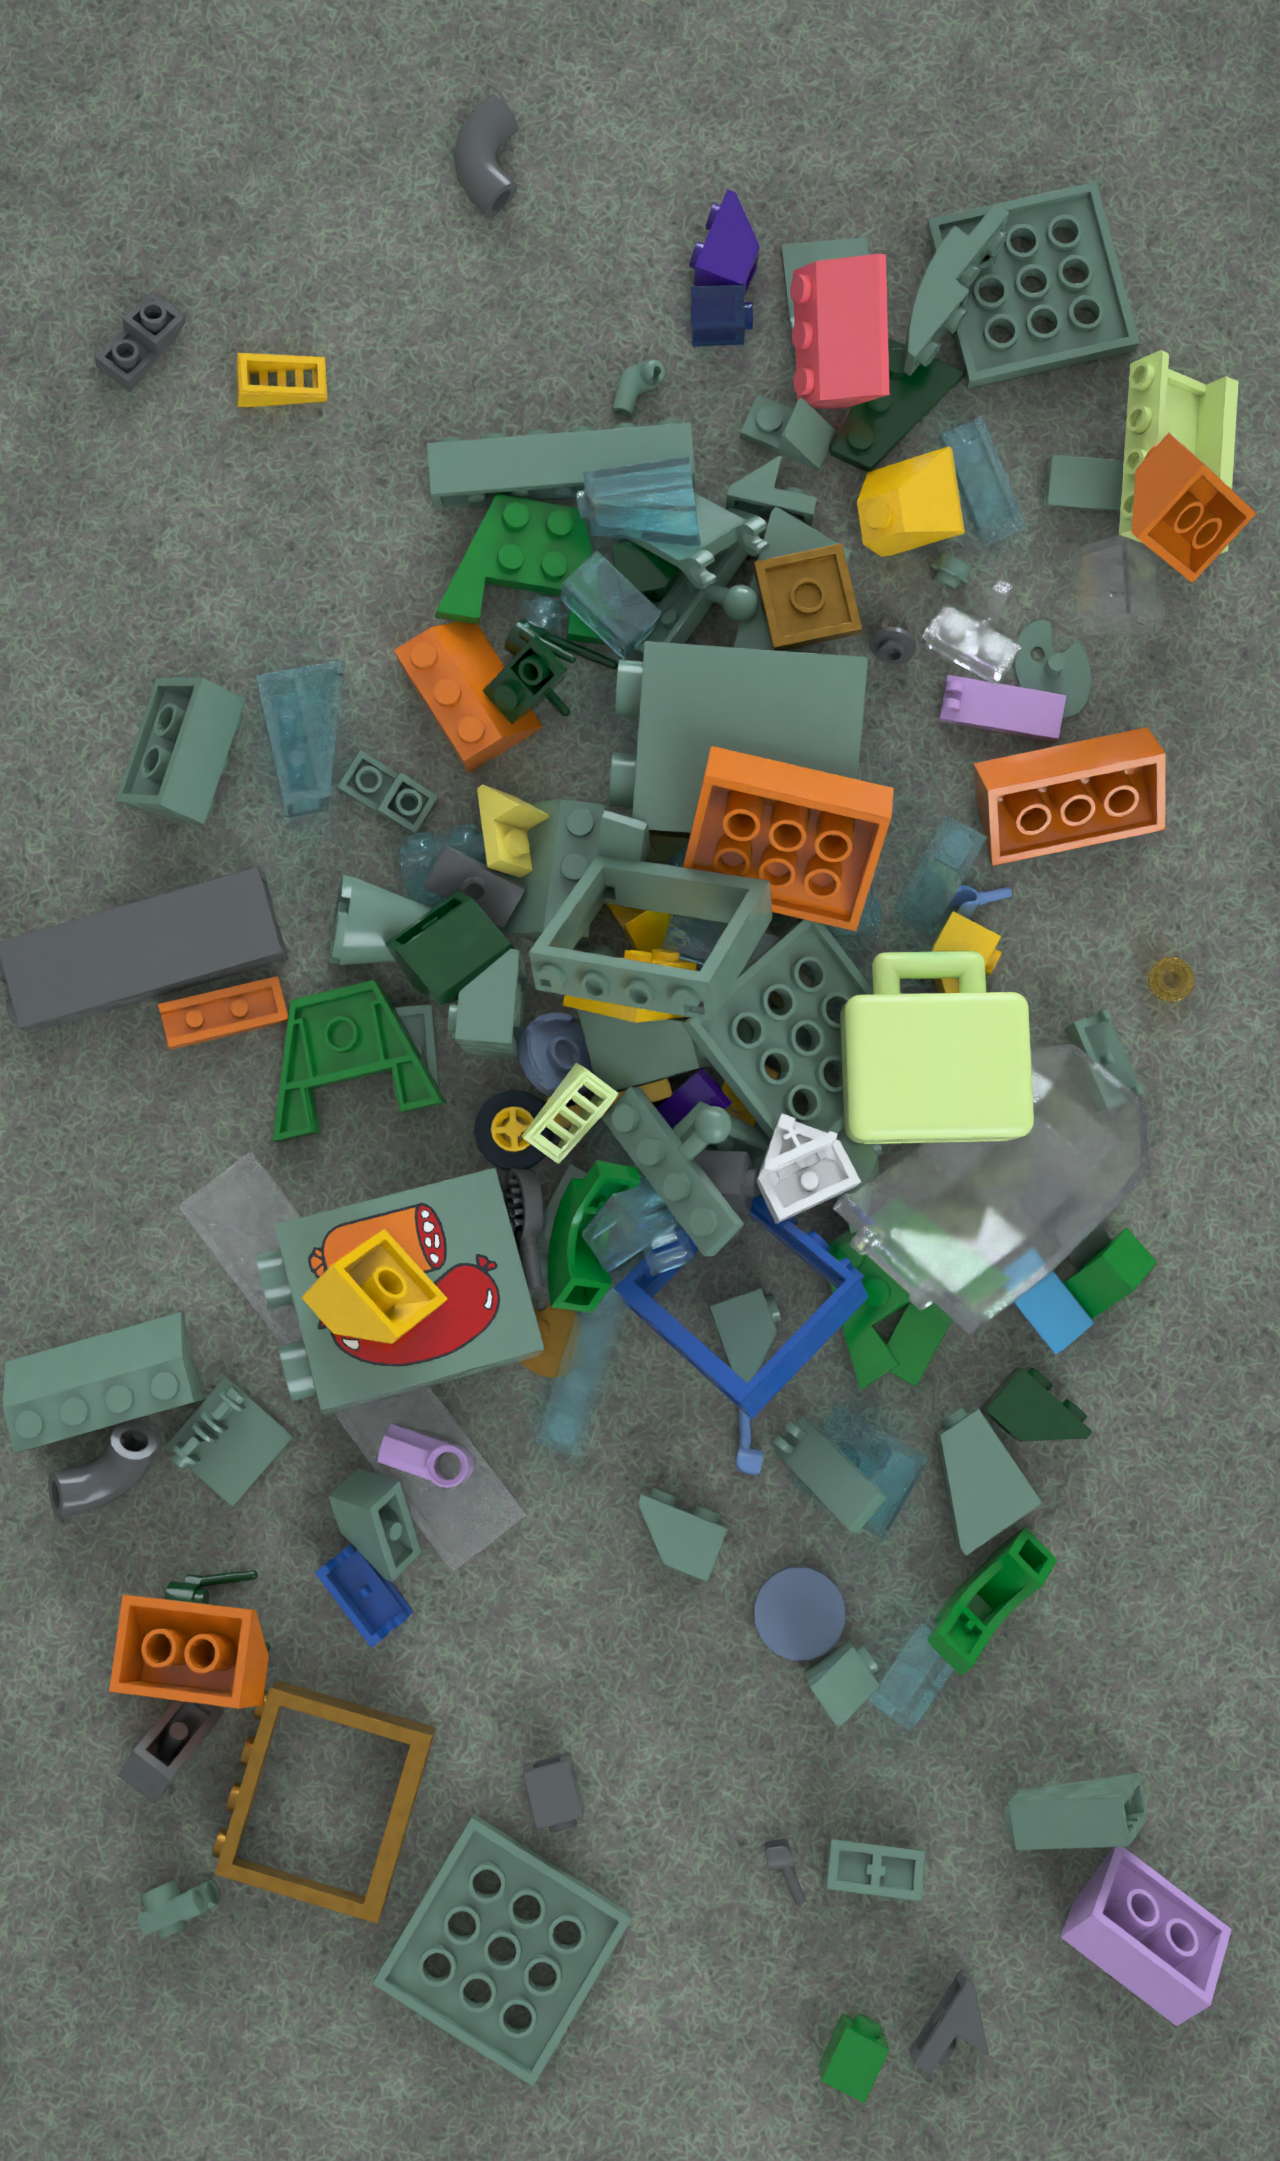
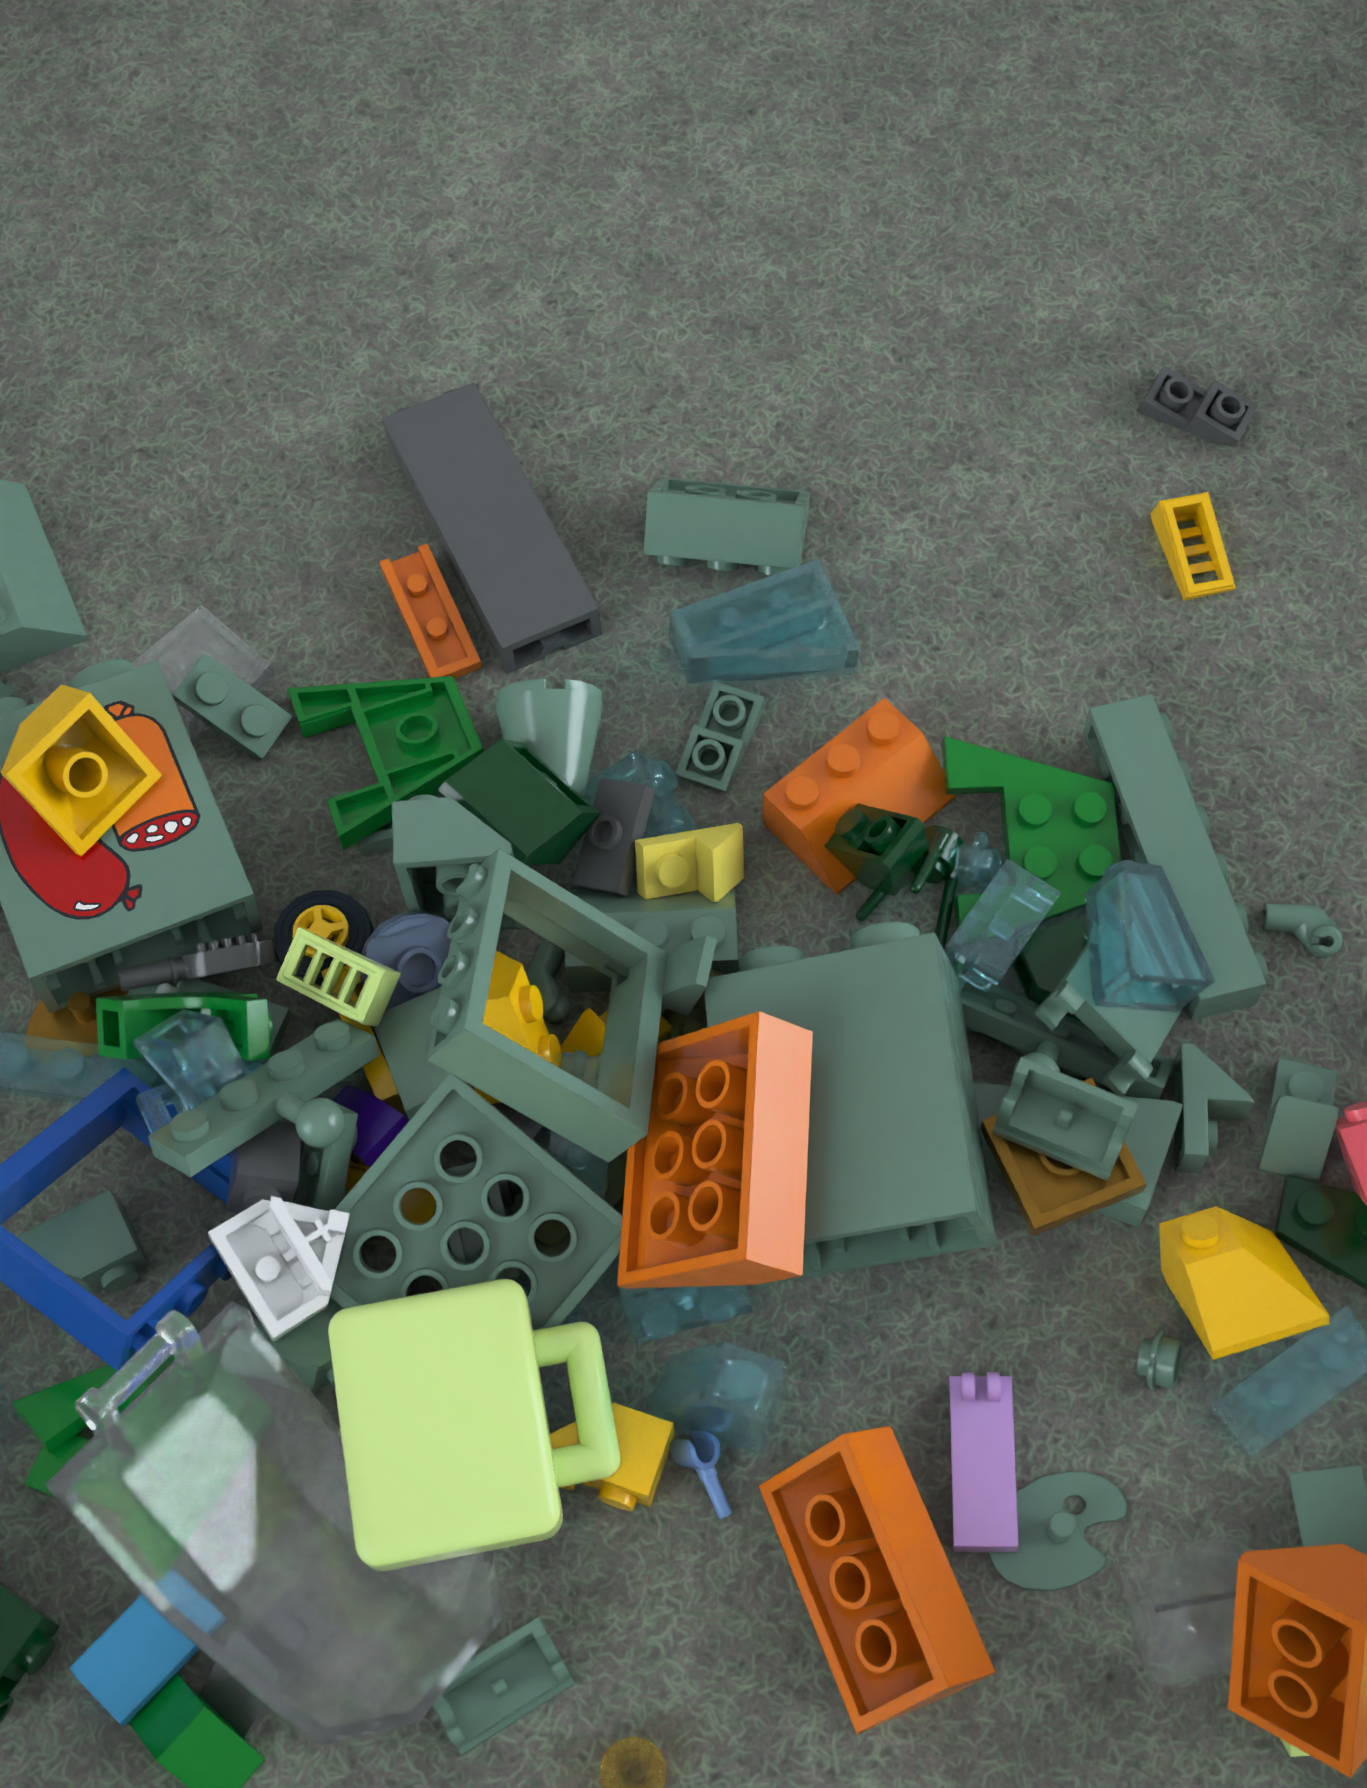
camera: 80 degrees right, 20 degrees down
(288, 1185) = (231, 707): none -> sand green plate
(791, 586) = (1064, 1118): none -> sand green hinge
(893, 643) = (1036, 1298): dark grey plate -> none
(975, 642) = (1065, 1405): clear plate -> none

